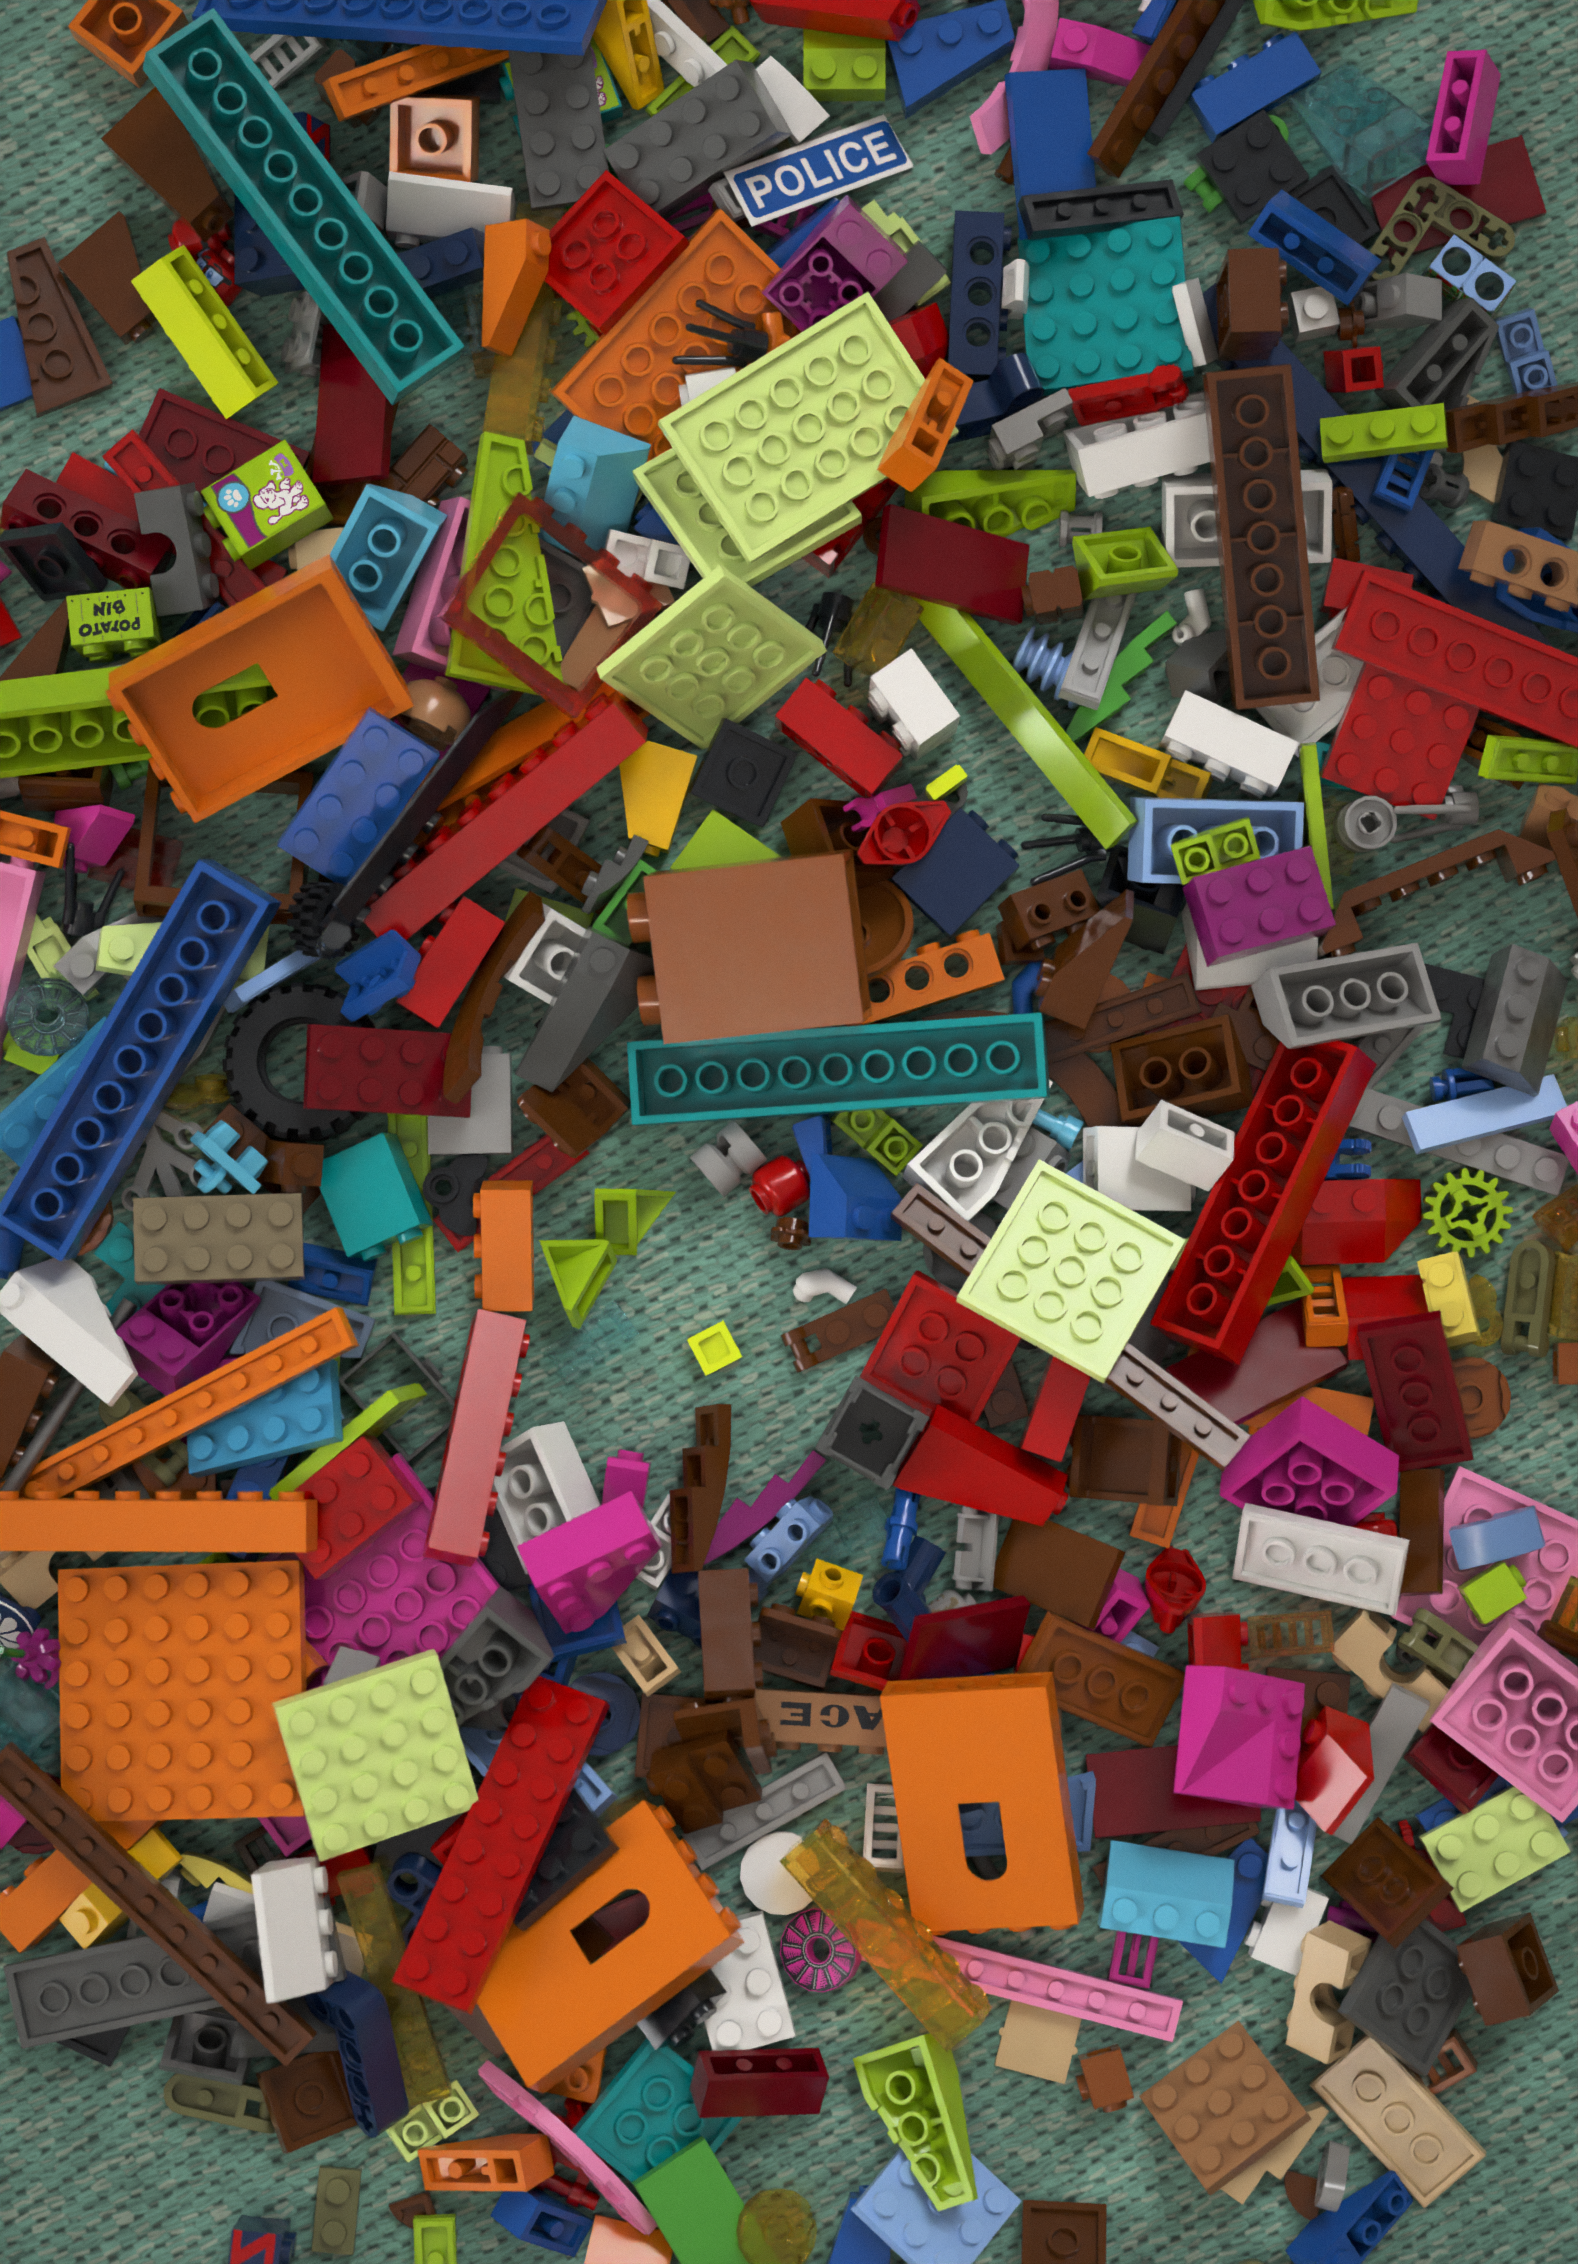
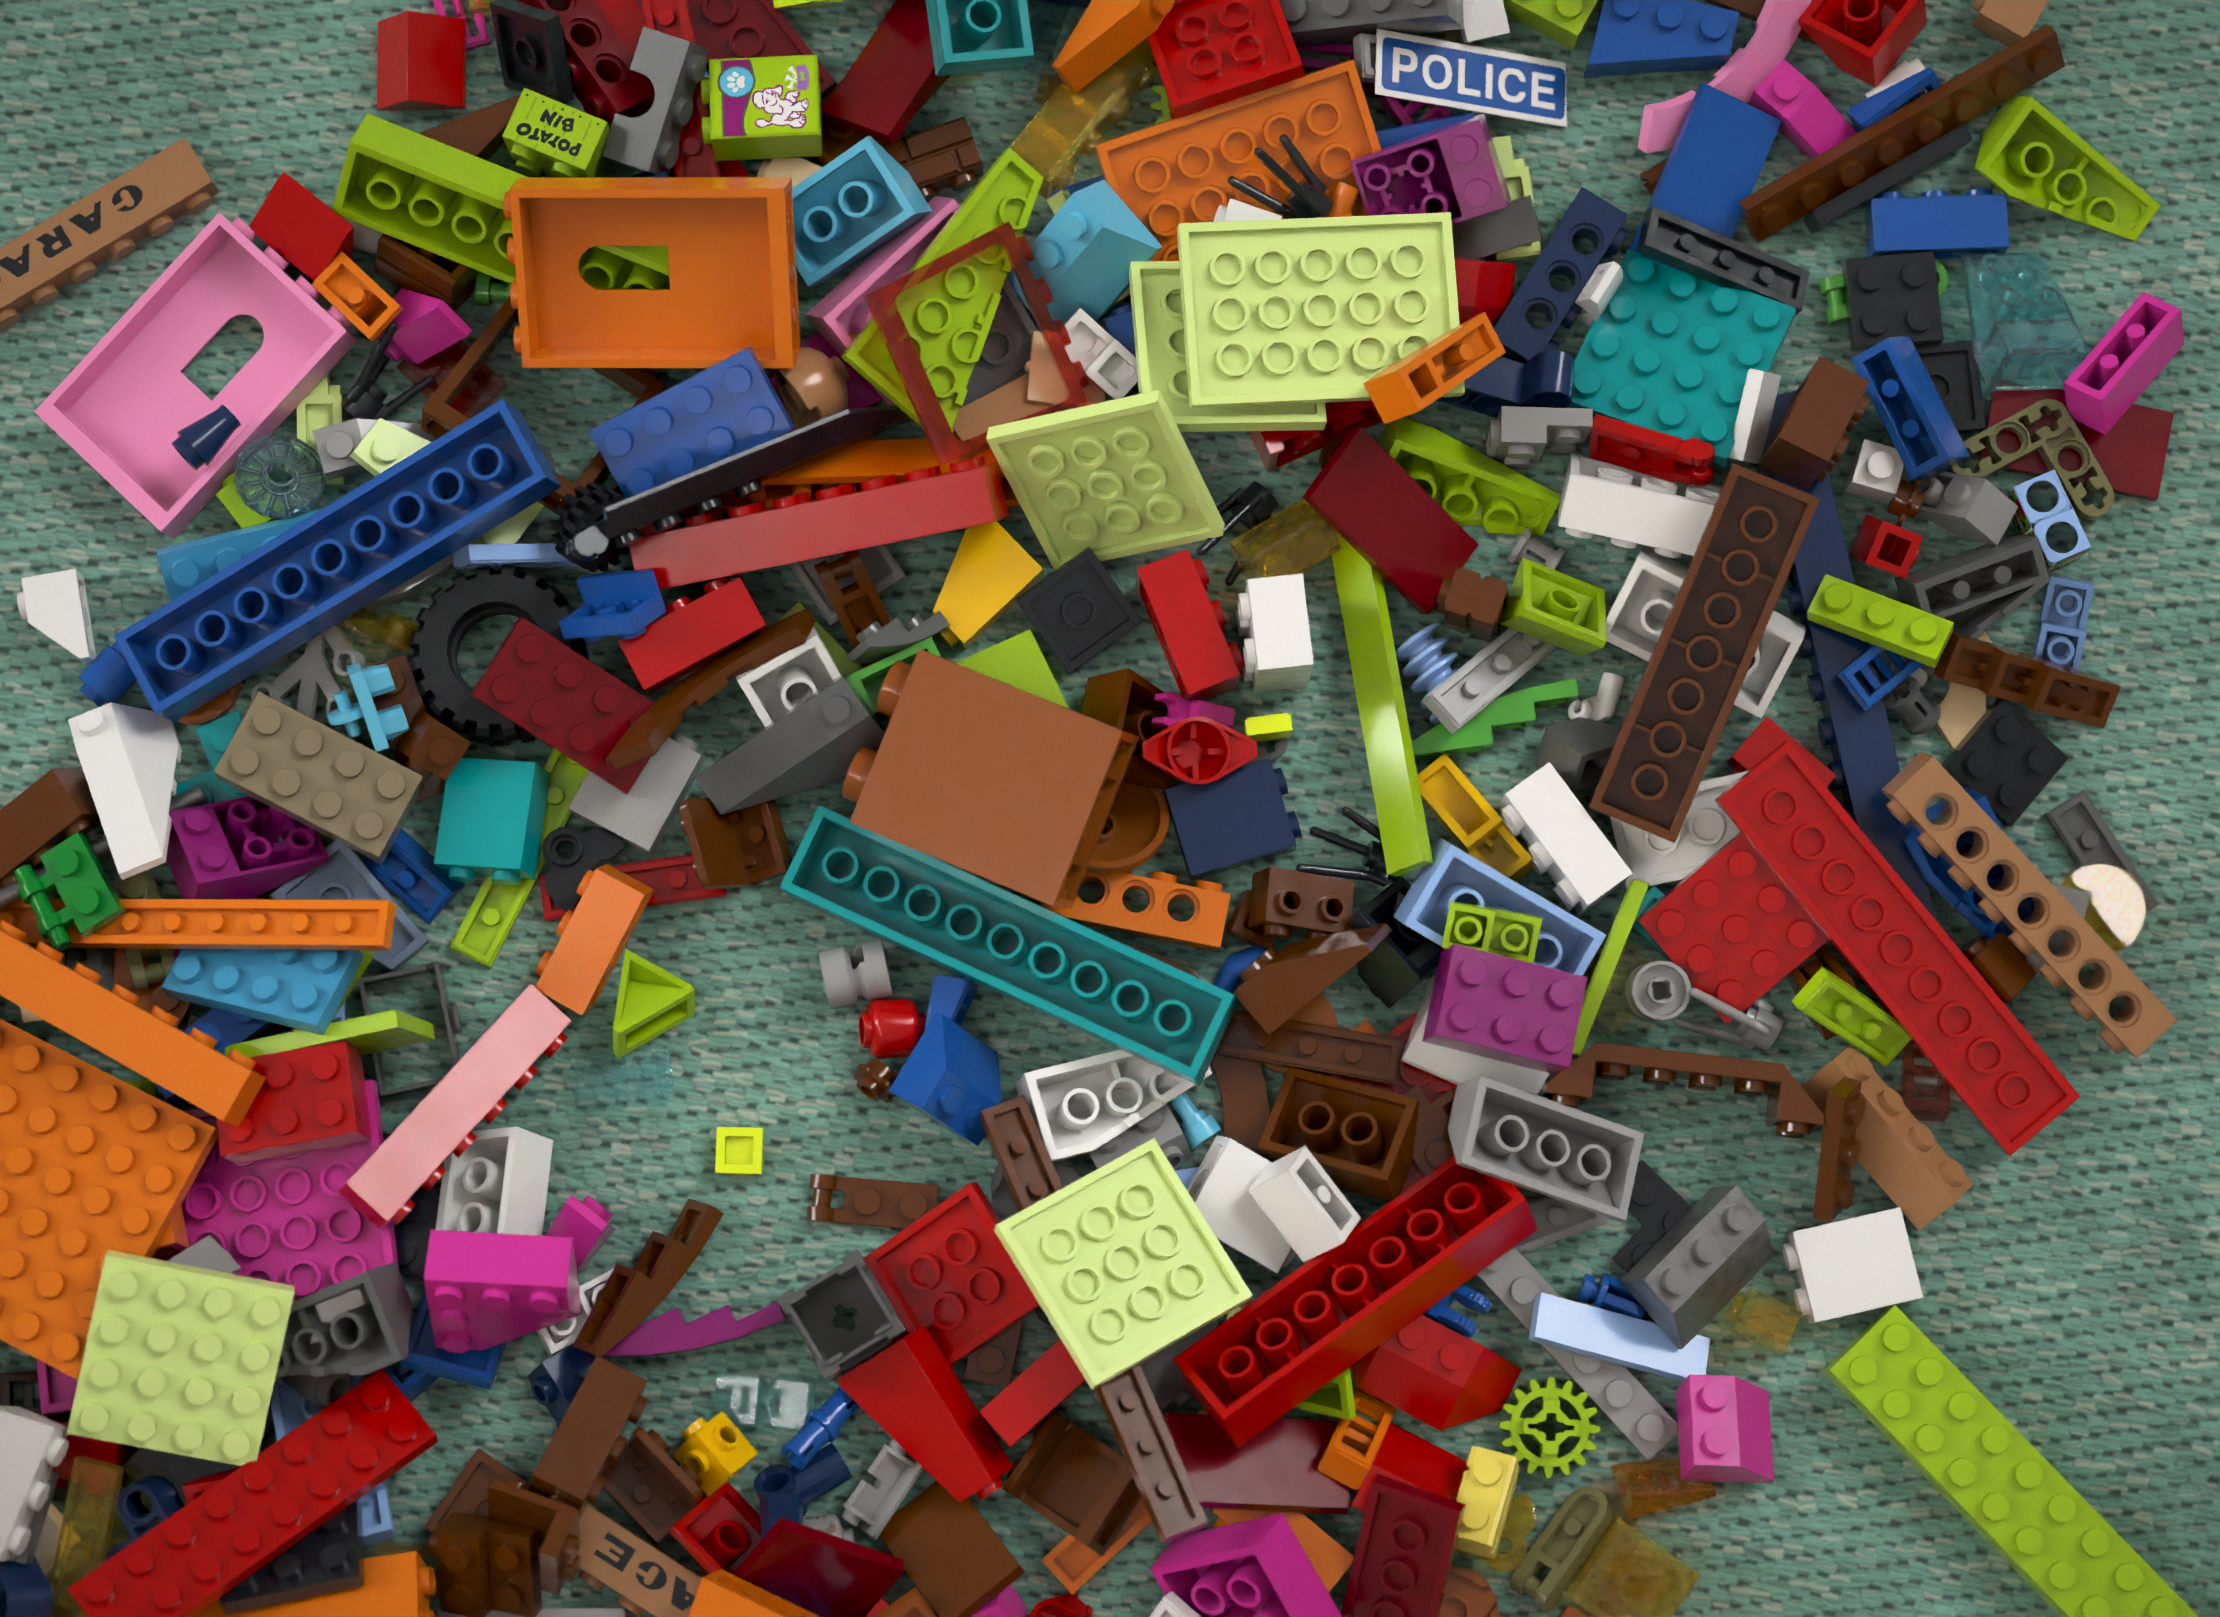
camera: 25 degrees right, 5 degrees down
(78, 1427) = (82, 886): none -> green plate
(623, 1708) = (453, 1447): dark blue plate -> none
(627, 1215) = (727, 975): lime slope -> none
(645, 1657) = (501, 1414): tan slope -> none
(782, 1546) = (700, 1376): medium blue brick -> none
(820, 1282) = (879, 1144): white arm -> none
(879, 1137) = (1014, 1034): lime slope -> none
(1344, 524) = (1795, 690): reddish brown axle -> none

